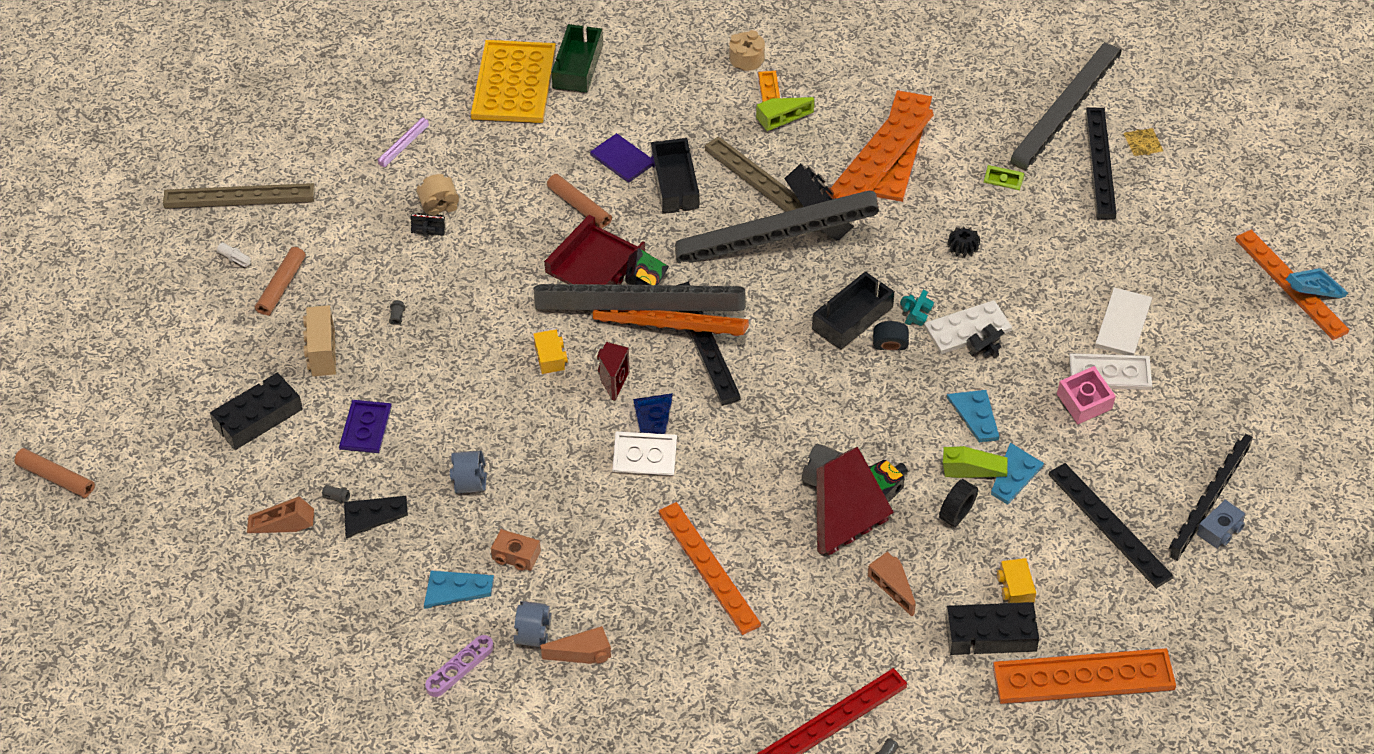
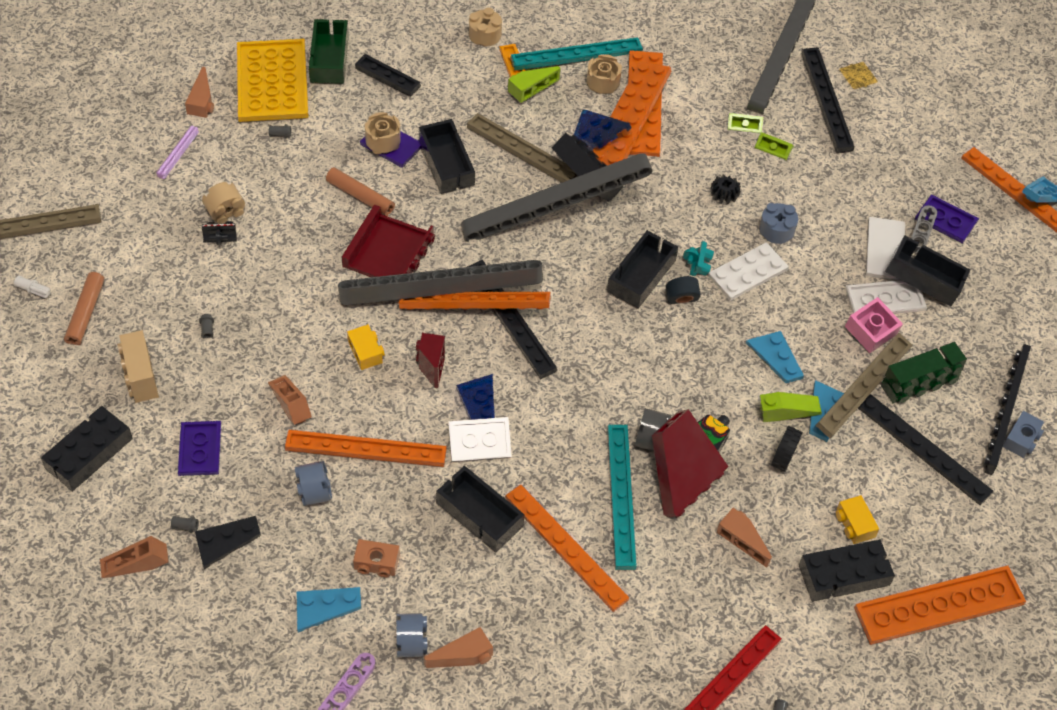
camera: 15 degrees left, 5 degrees up
(436, 92) = (199, 100): none -> nougat slope
(464, 392) = (290, 399): none -> nougat slope
(510, 132) = (280, 131): none -> dark grey pin
(529, 447) = (366, 448): none -> orange plate
(613, 145) = (382, 133): none -> tan brick
(628, 518) = (480, 508): none -> black piece
(634, 88) = (387, 75): none -> black plate
(644, 269) = (439, 253): torso -> none
(776, 528) = (621, 498): none -> teal plate
(837, 87) = (574, 53): none -> teal tile
(840, 165) = (598, 129): none -> clear blue wing
(861, 111) = (604, 74): none -> tan brick
(978, 345) = (763, 288): black hips -> none
(1011, 281) = (778, 223): none -> sand blue brick
(1029, 204) = (774, 146): none -> lime slope
(1059, 453) = (863, 386): none -> dark tan plate
(1126, 448) = (923, 373): none -> dark green piece
(1161, 350) = (928, 271): none -> black piece
(1167, 314) = (924, 236): none -> light grey beam
(1200, 299) = (950, 219): none -> dark purple tile

